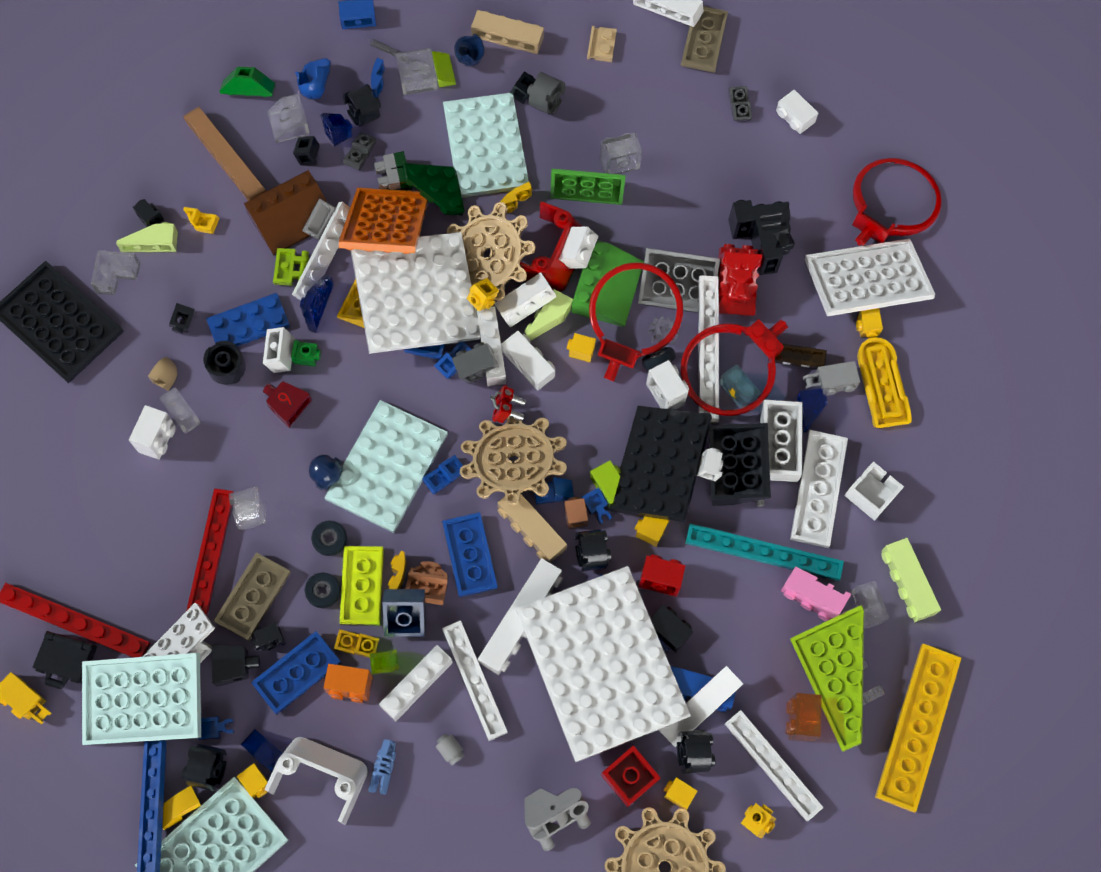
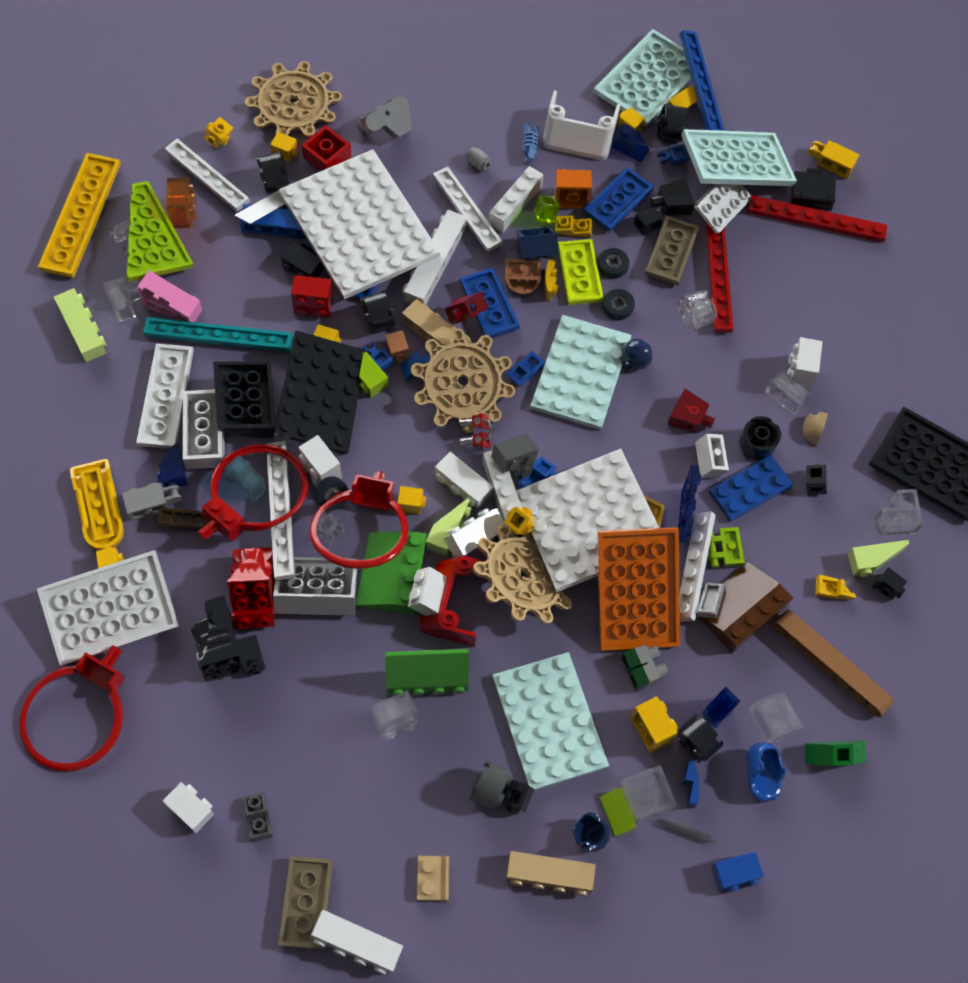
camera: 170 degrees right, 5 degrees down
(306, 150) = (746, 680): black brick -> none
(307, 359) = (683, 459): green brick -> none
(360, 151) = (688, 692): dark grey slope -> none
(397, 119) = (654, 724): none -> yellow brick
(436, 185) = (593, 653): dark green plate -> none
(499, 535) = (460, 310): none -> dark red torso
(520, 193) = (508, 650): yellow slope -> none
(710, 464) = (272, 382): white brick -> none
(871, 494) = (111, 392): white piece -> none

